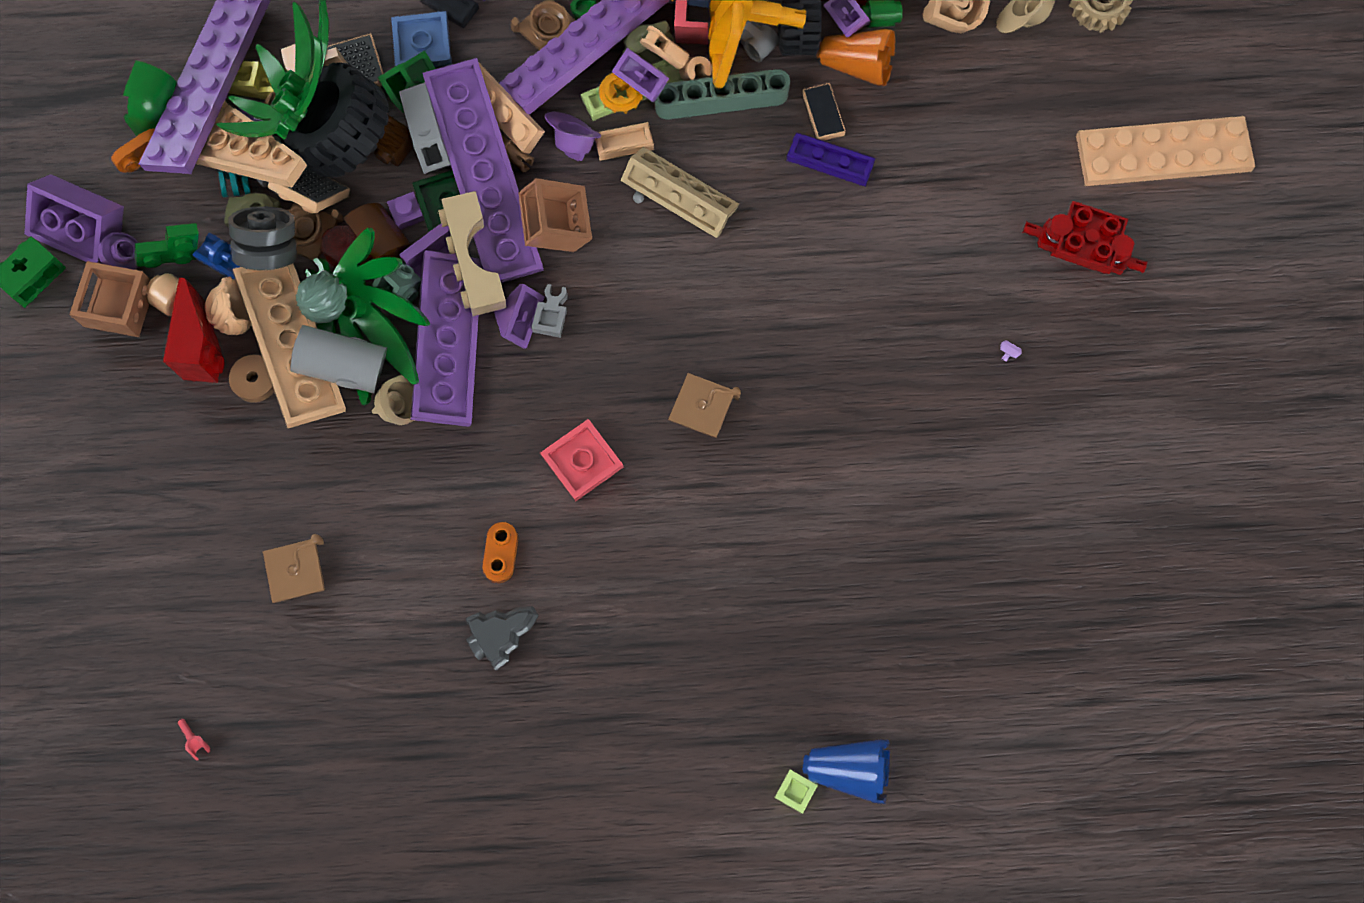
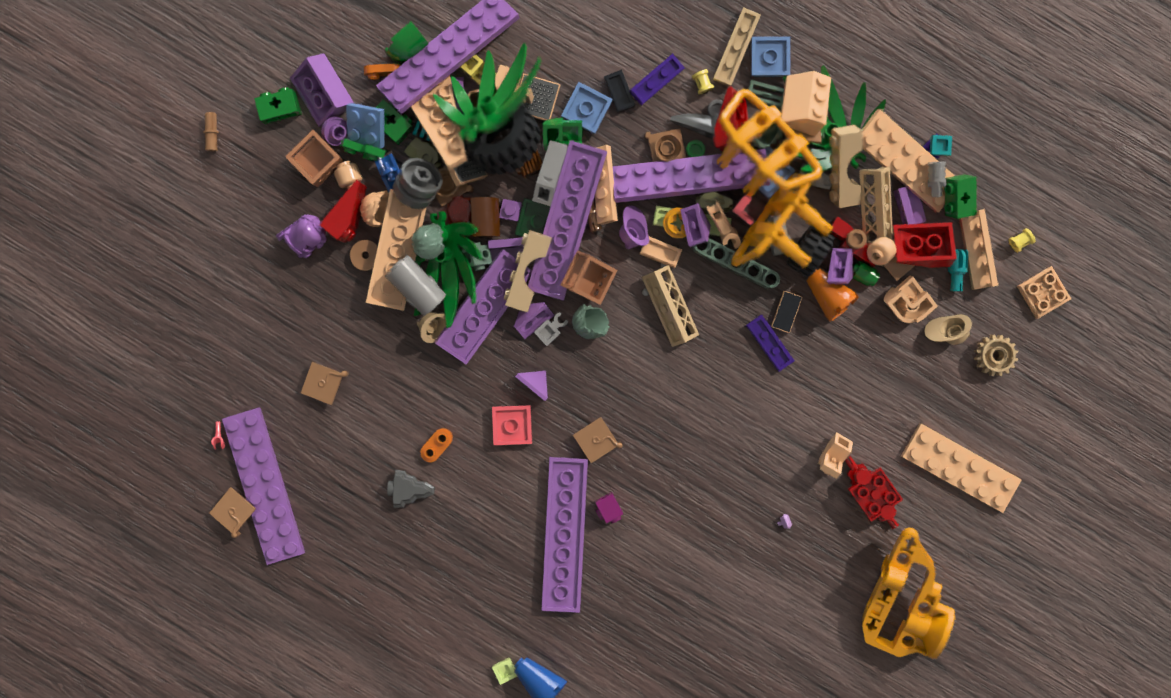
camera: 35 degrees right, 15 degrees up
(150, 213) = (365, 125): none -> medium blue plate
(154, 397) = (304, 235): none -> medium lavender helmet
(186, 200) = (401, 128): none -> green brick
(273, 827) = (232, 511): none -> medium nougat hat
(298, 766) = (263, 485): none -> medium lavender plate
(575, 389) = (536, 382): none -> medium lavender slope
(593, 269) = (590, 322): none -> sand green hair
(748, 554) = (564, 534): none -> medium lavender plate
(779, 479) = (608, 508): none -> magenta brick
(1007, 228) = (834, 455): none -> light nougat brick
(1284, 346) = (928, 625): none -> light orange piece

